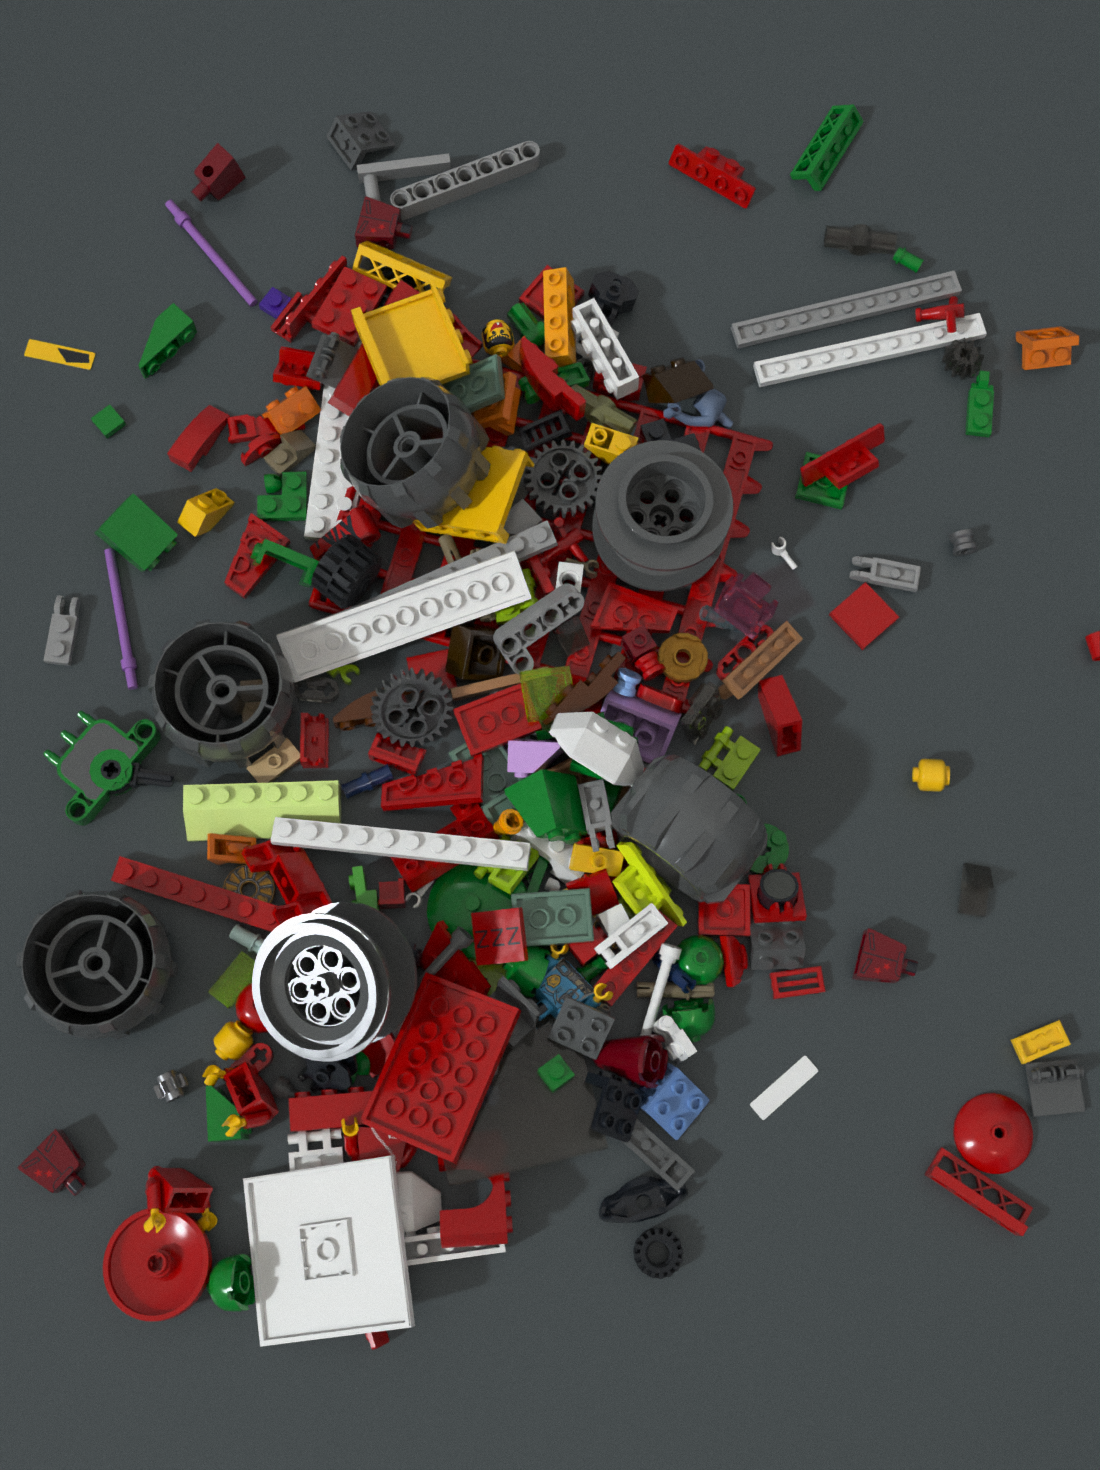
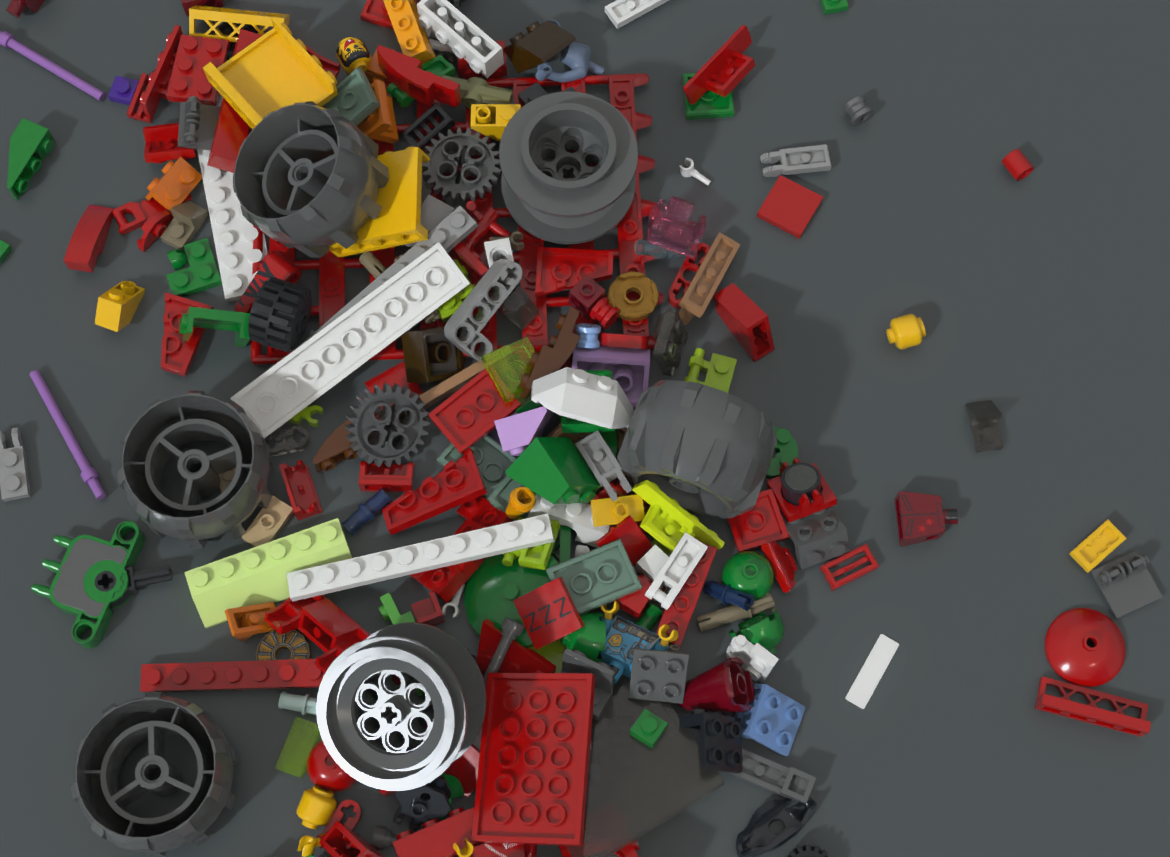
camera: 15 degrees left, 5 degrees down
(137, 533) = (57, 346): green slope -> none
(527, 324) = (375, 35): green piece -> none
(669, 954) = (719, 580): white piece -> none

